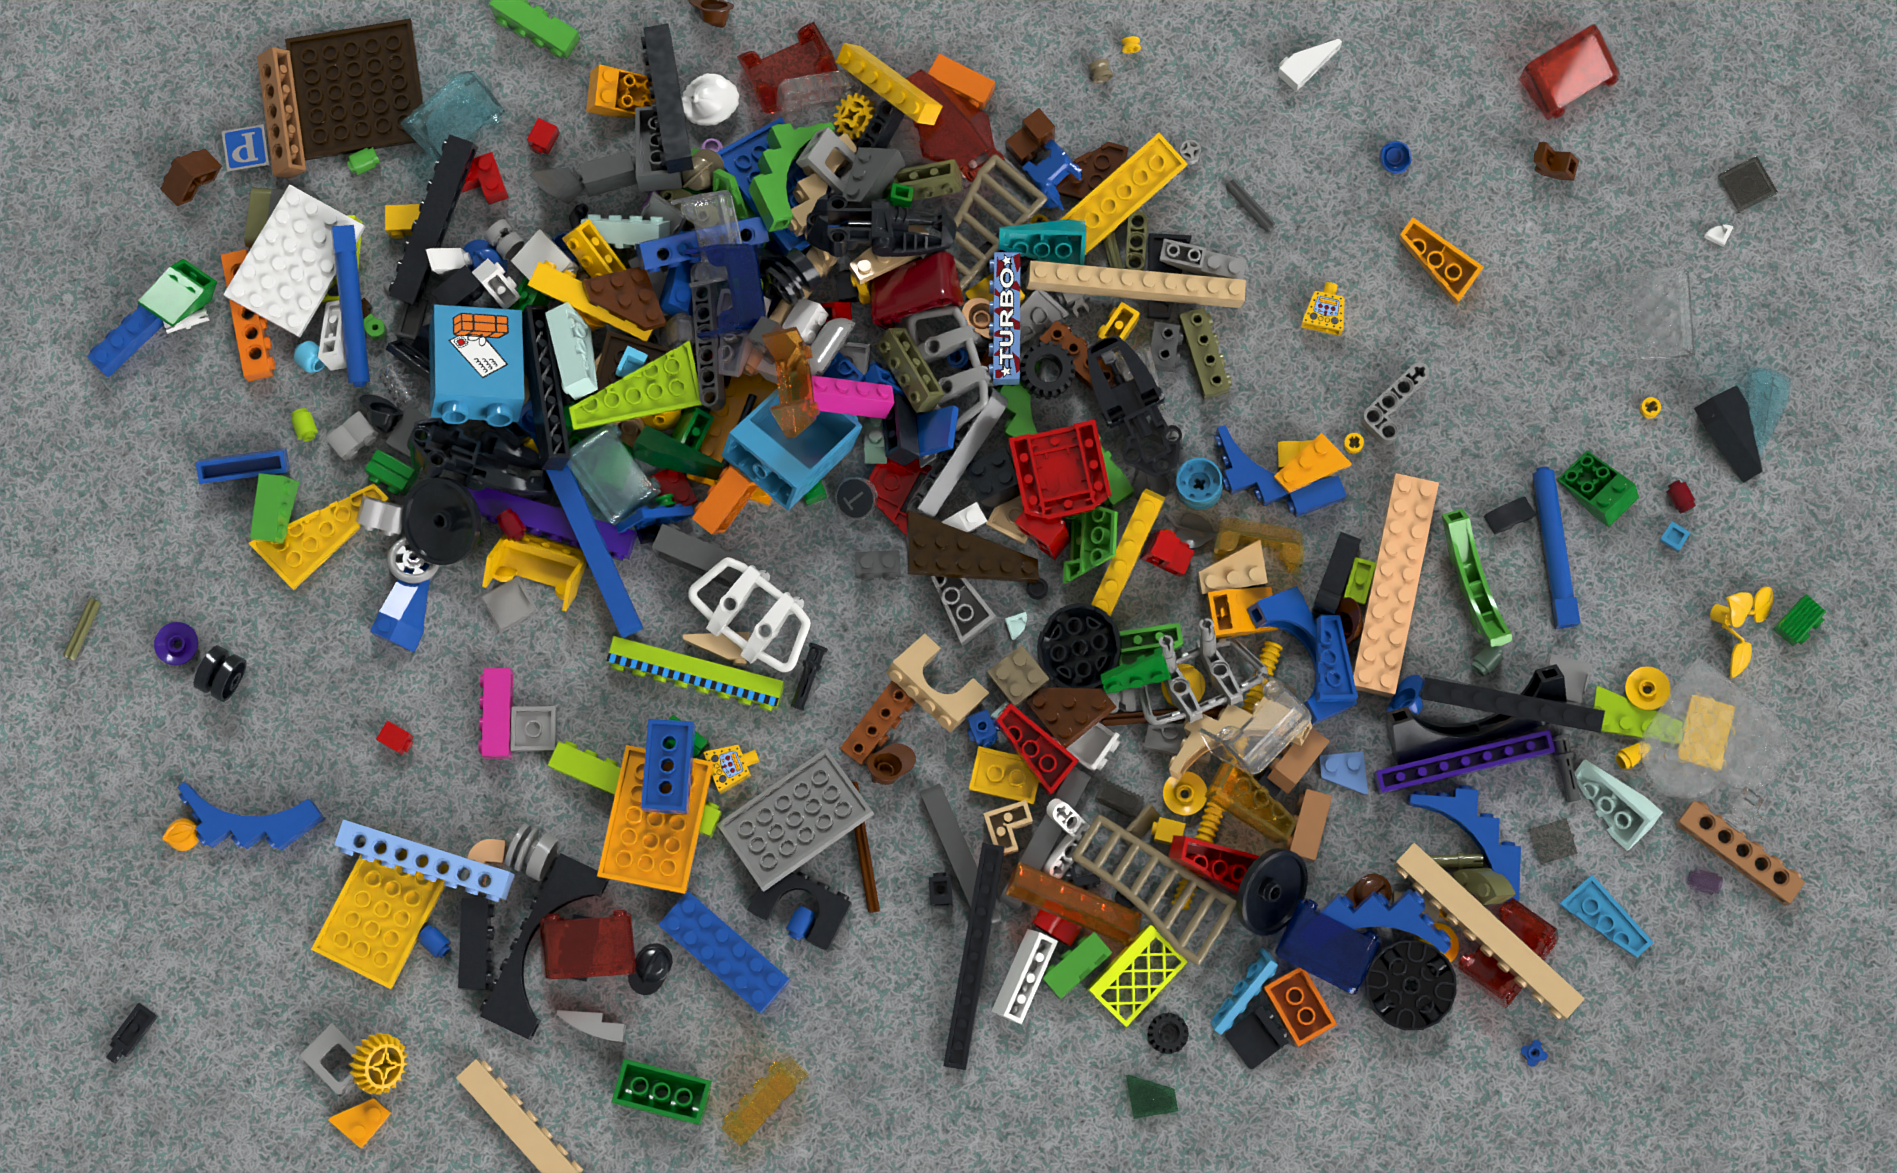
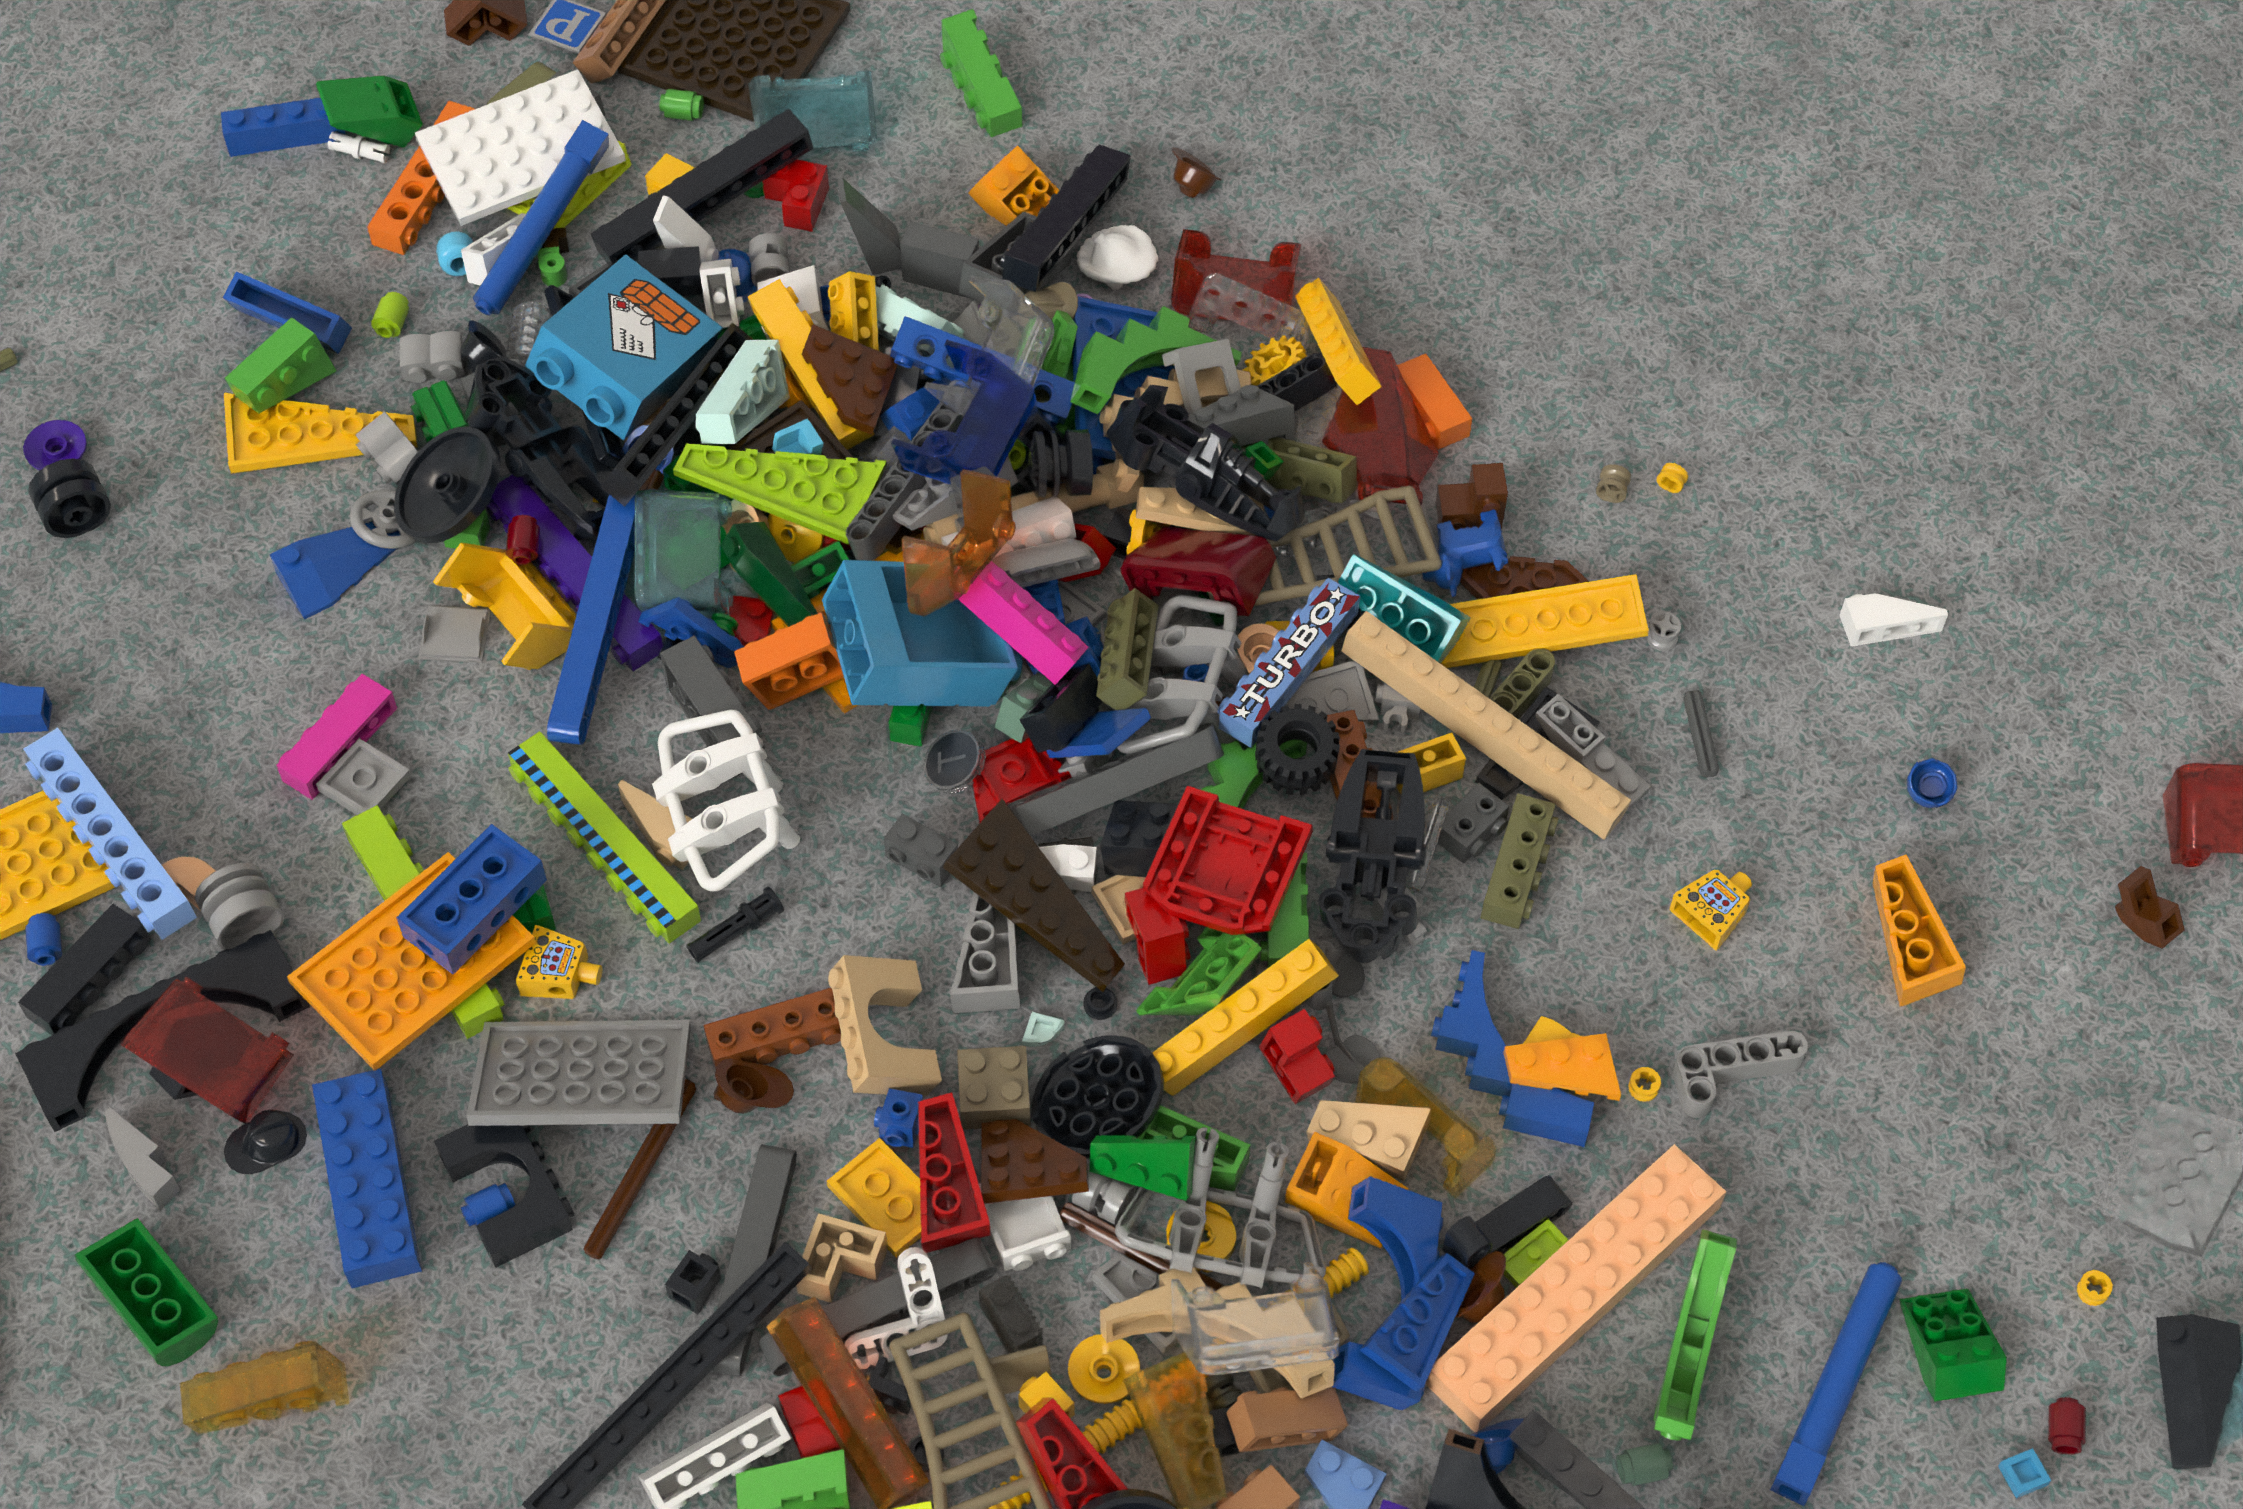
camera: 30 degrees right, 20 degrees down
(395, 738) = (199, 689): red brick -> none
(542, 137) = (898, 189): red brick -> none
(1202, 472) = (1403, 985): dark azure wheel -> none
(1509, 514) = (1799, 1297): black slope -> none

